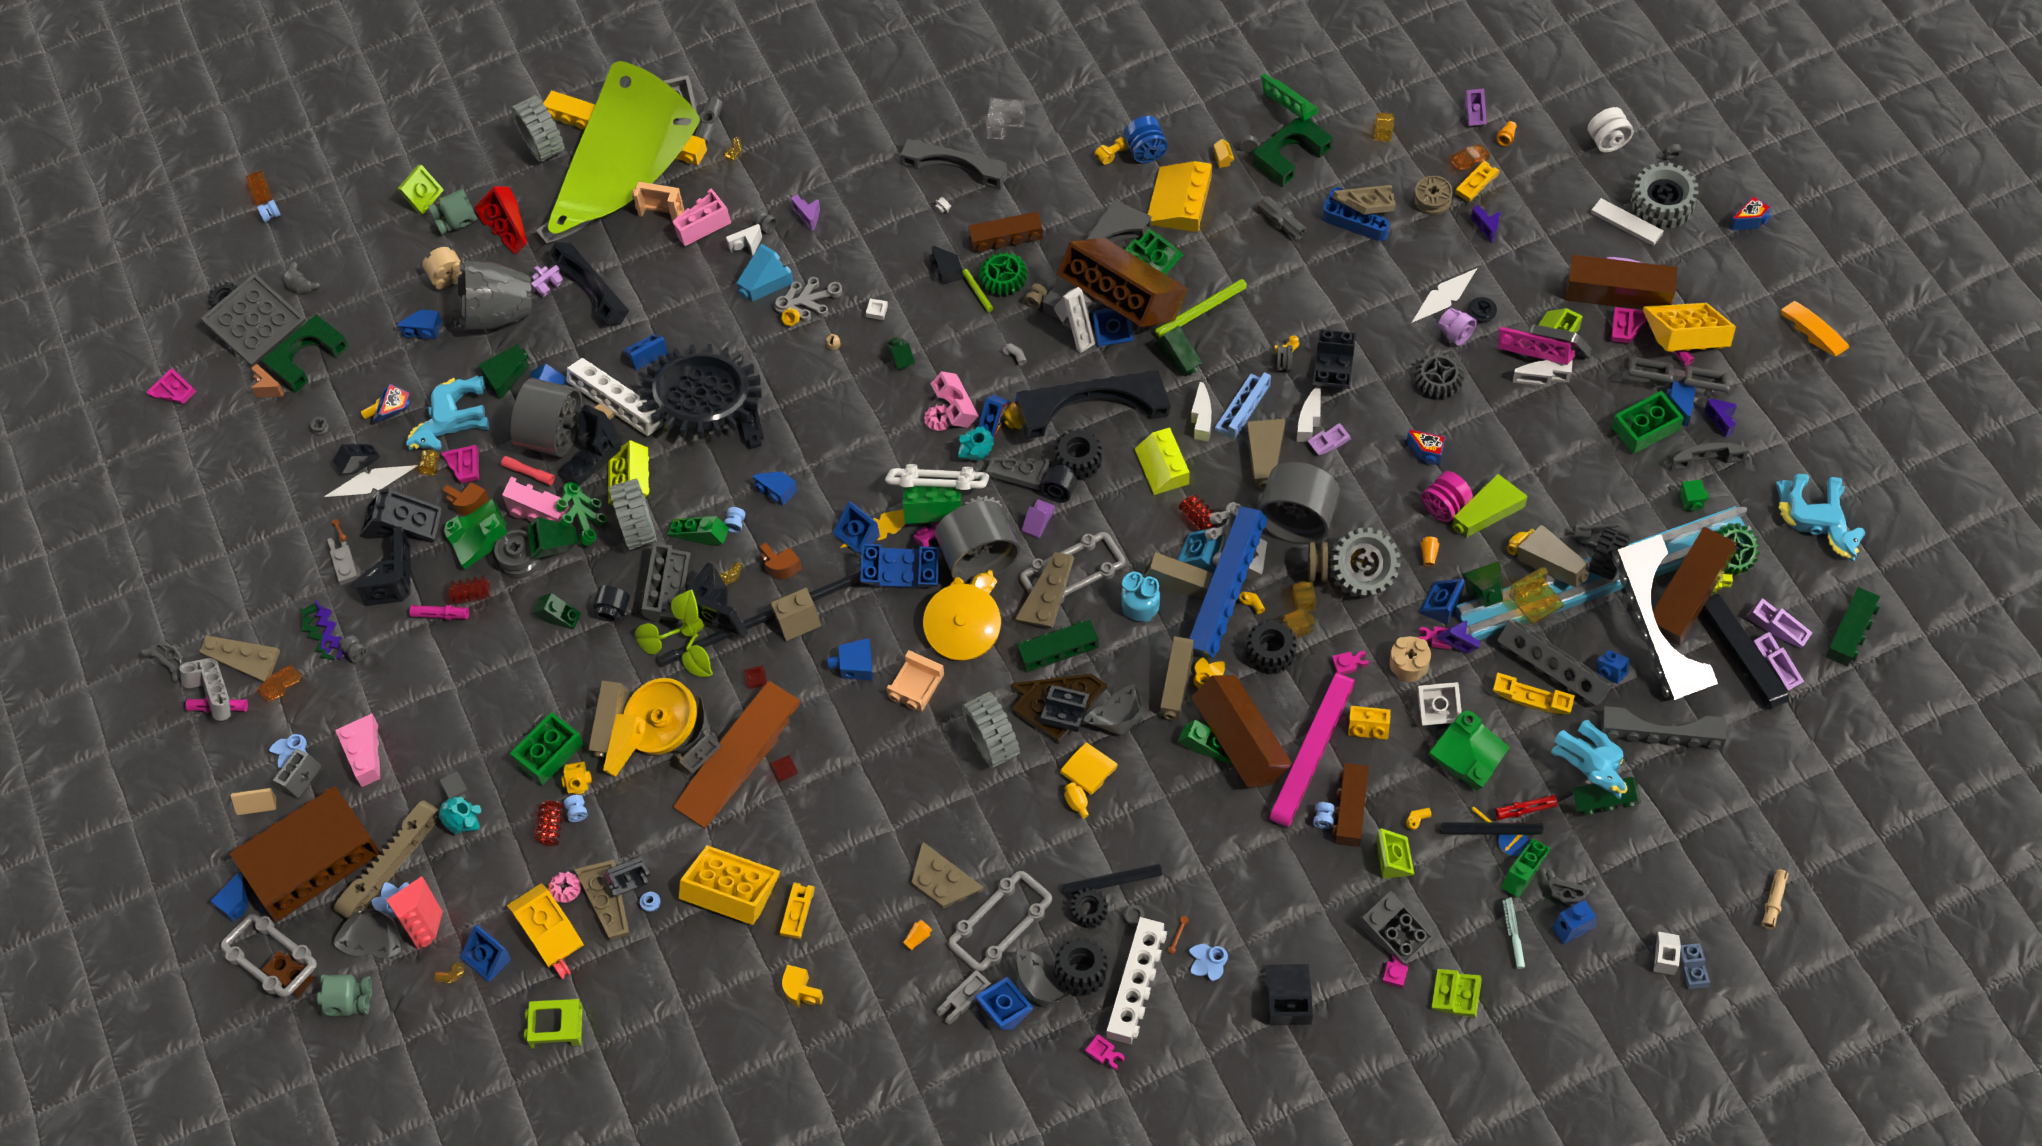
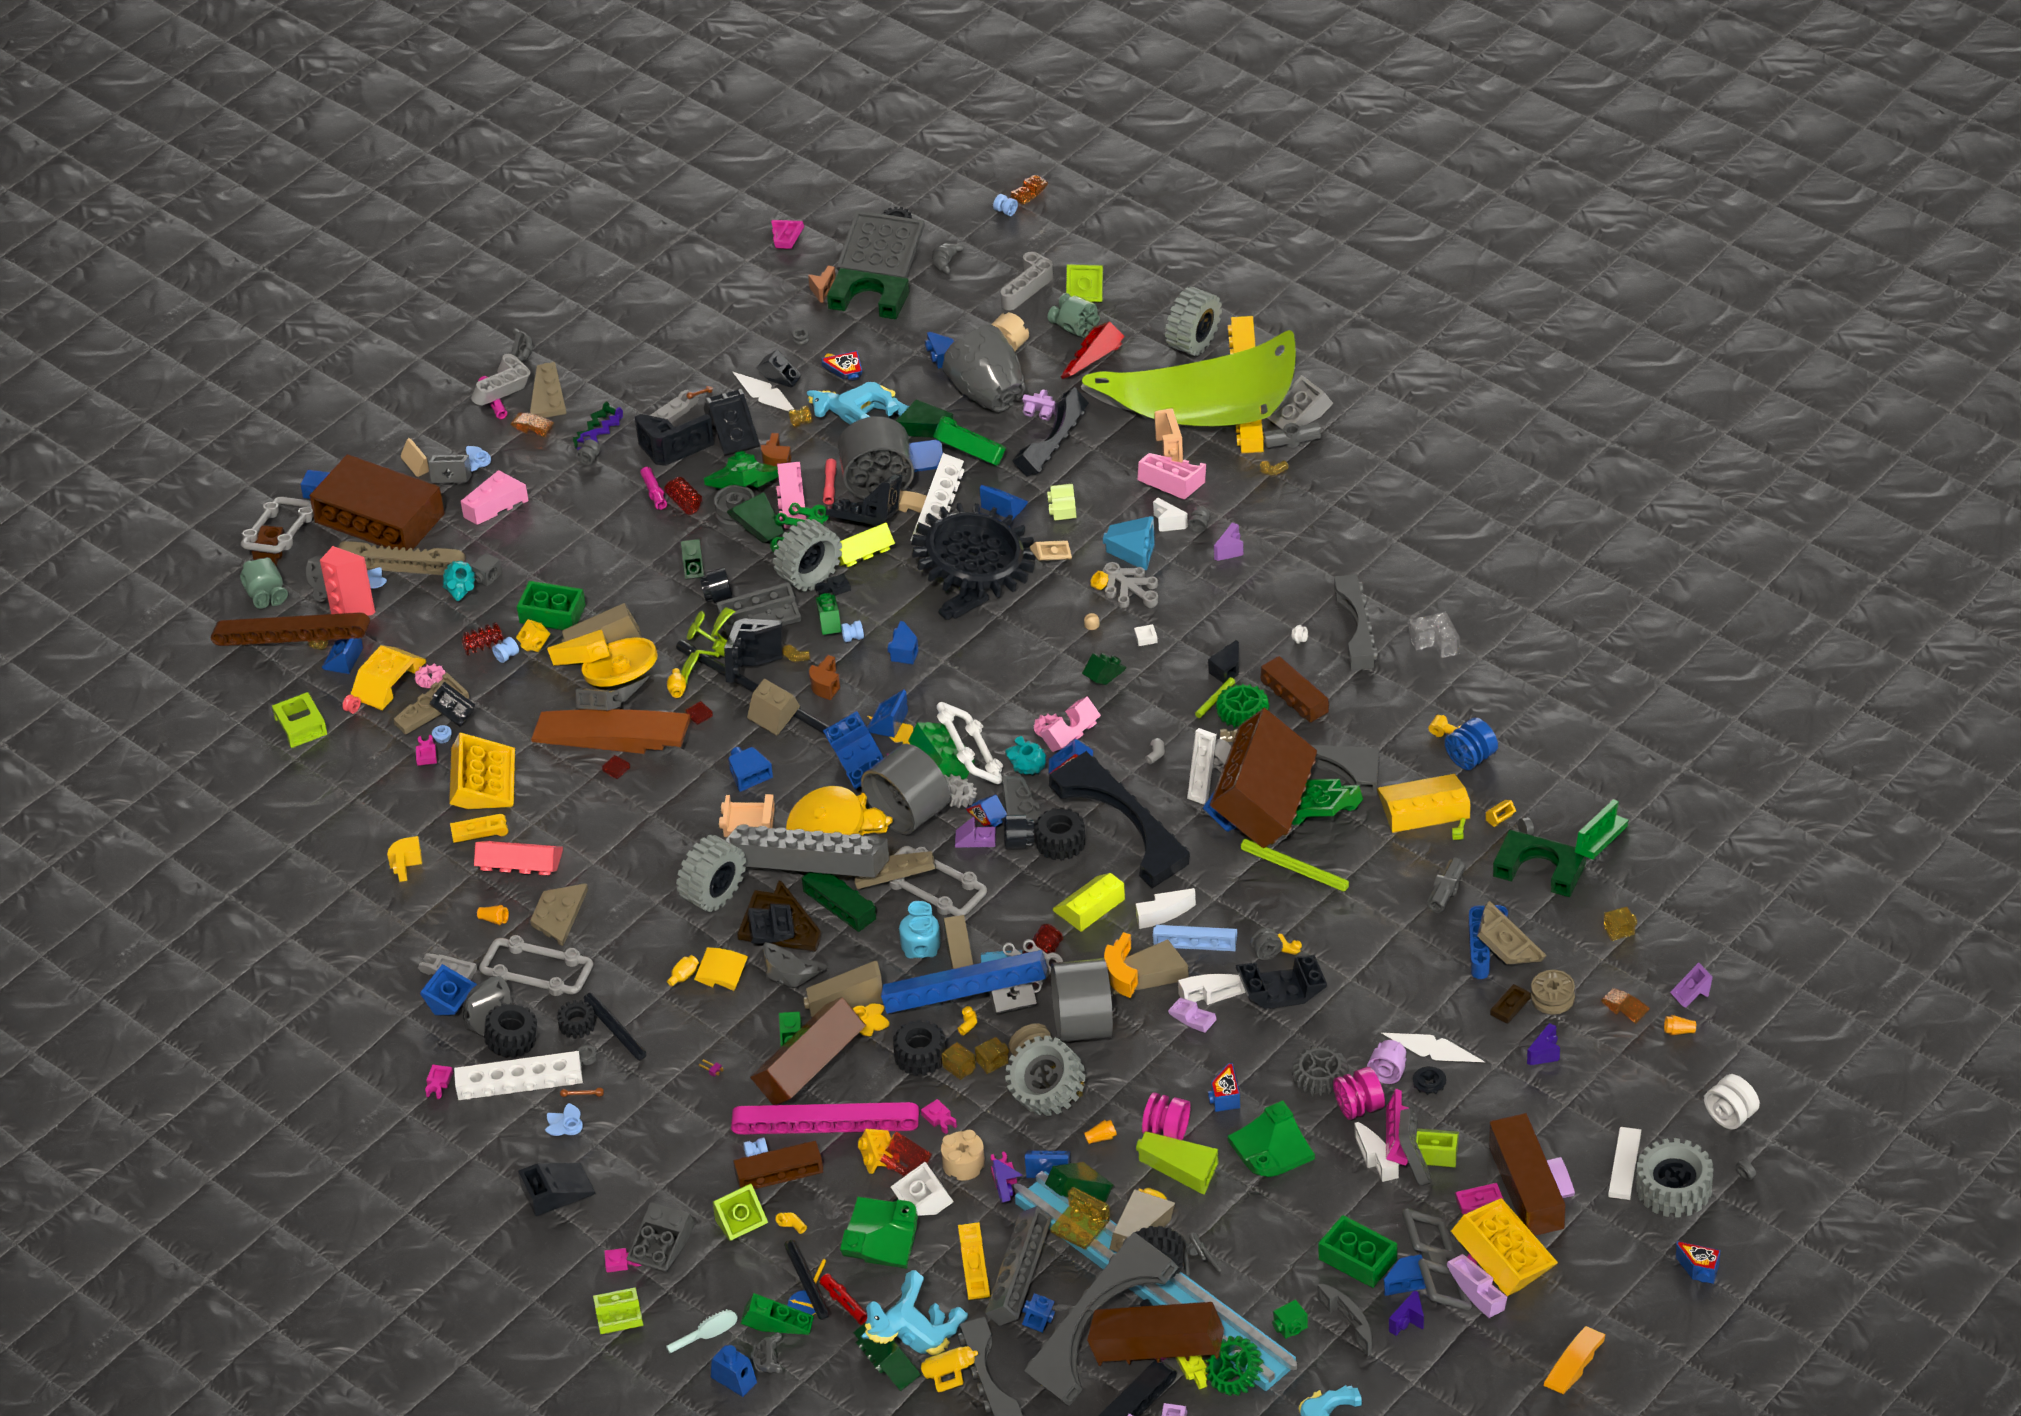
camera: 65 degrees right, 15 degrees down
(374, 217) = (1036, 274): none -> light grey beam
(433, 989) = (290, 629): none -> reddish brown beam
(464, 463) = (813, 439): dark pink wing -> none
(559, 346) = (968, 441): none -> green beam
(662, 513) = (834, 585): none -> black plate
(669, 924) = (426, 751): none -> dark pink plate
(677, 307) = (1062, 502): none -> yellowish green brick
(711, 681) = (676, 683): none -> yellow plant
(733, 337) = (1051, 550): none -> tan slope
(855, 887) = (517, 856): none -> coral slope
(1002, 644) = (811, 850): none -> dark grey brick
(1018, 496) = (988, 811): none -> slope
(1179, 351) = (1225, 862): dark green slope -> none
(1206, 817) = (714, 1070): none -> piece
(1226, 188) = (1457, 833): none -> lime hand
(1261, 465) = (1121, 977): none -> light orange arch
(1389, 699) = (907, 1152): none -> clear red plate
(1430, 227) = (1510, 1003): none -> dark brown plate
(1476, 181) = (1598, 1022): yellow plate -> none
(1484, 356) = (1359, 1093): none -> dark pink wheel
(1498, 438) = (1272, 1142): none -> green slope
(1641, 753) = (947, 1363): none -> yellow piece
(1717, 359) = (1477, 1285): none -> lavender slope

